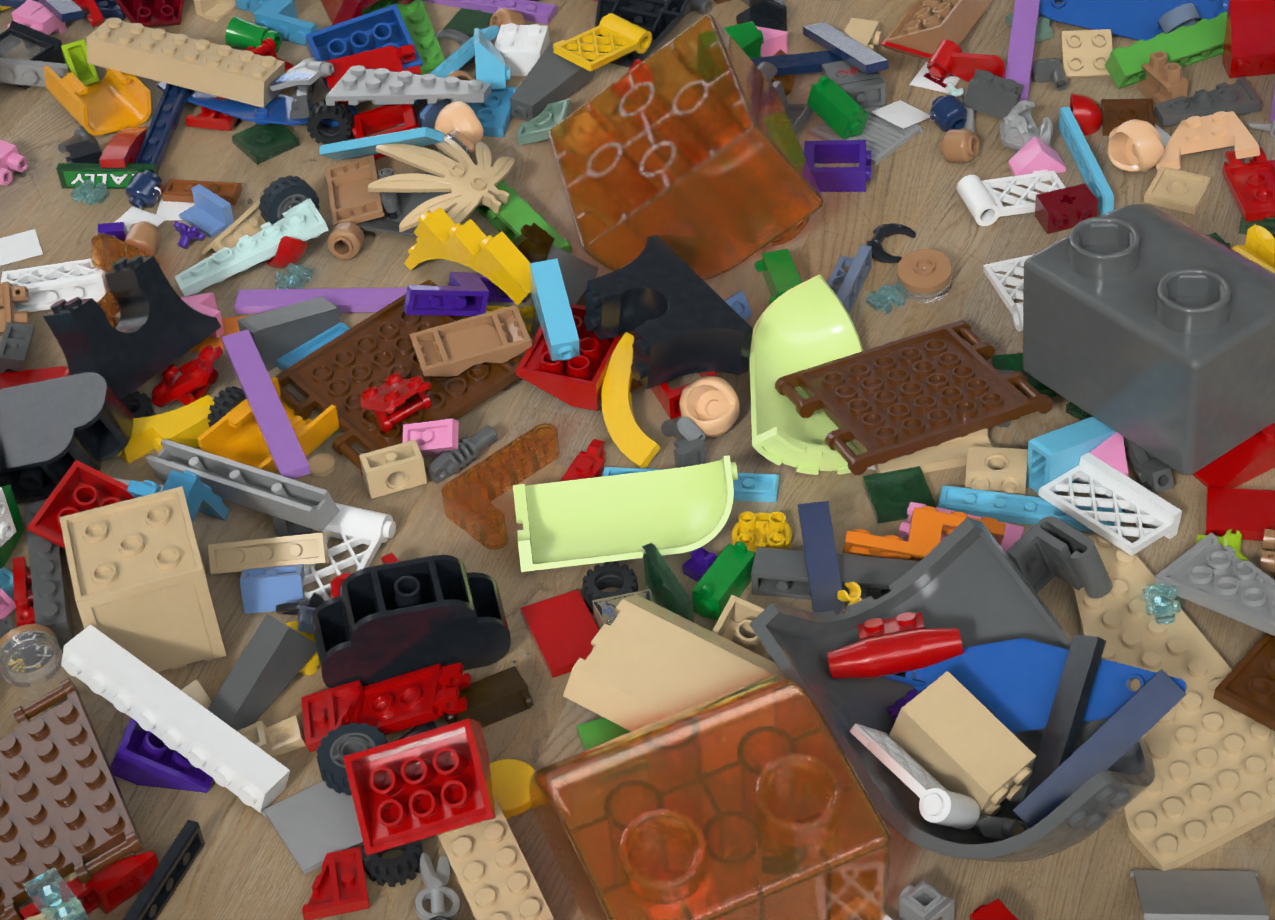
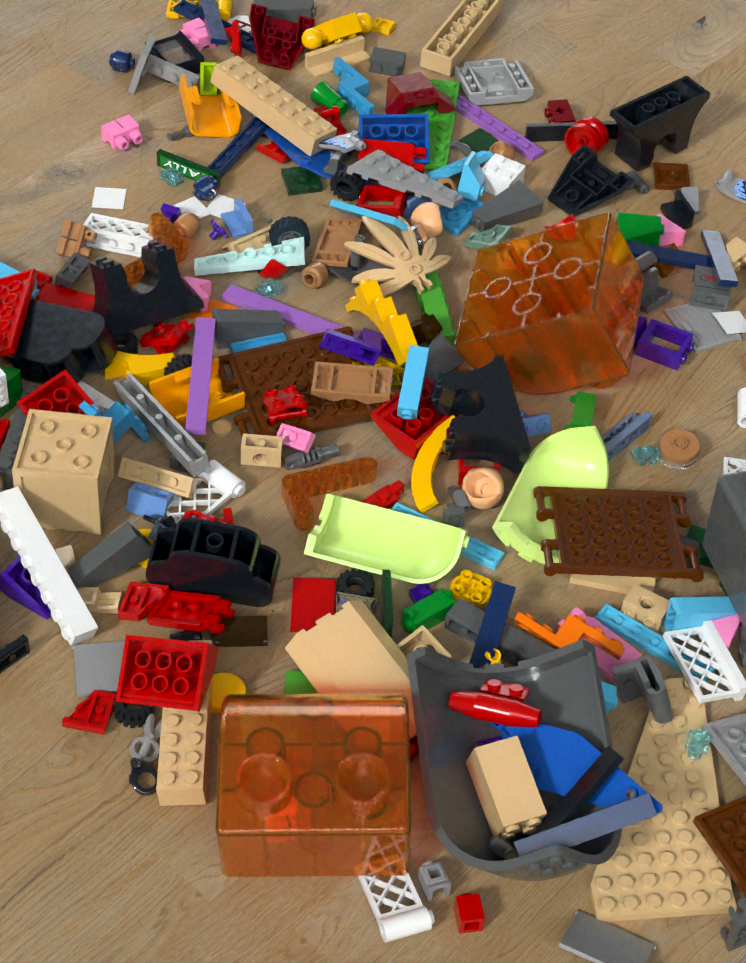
camera: 15 degrees right, 5 degrees up
(84, 152) = (181, 147): black brick -> none
(123, 147) = (206, 151): red slope -> none
(180, 190) = (255, 208): dark orange tile -> none
(340, 743) = (139, 625): black wheel -> none
(615, 32) = (570, 189): yellow piece -> none
(837, 108) = (687, 303): green brick -> none
(885, 231) = (658, 414): black piece -> none
(894, 490) = (572, 594): clear green tile -> none
(935, 802) = (469, 810): white piece -> none

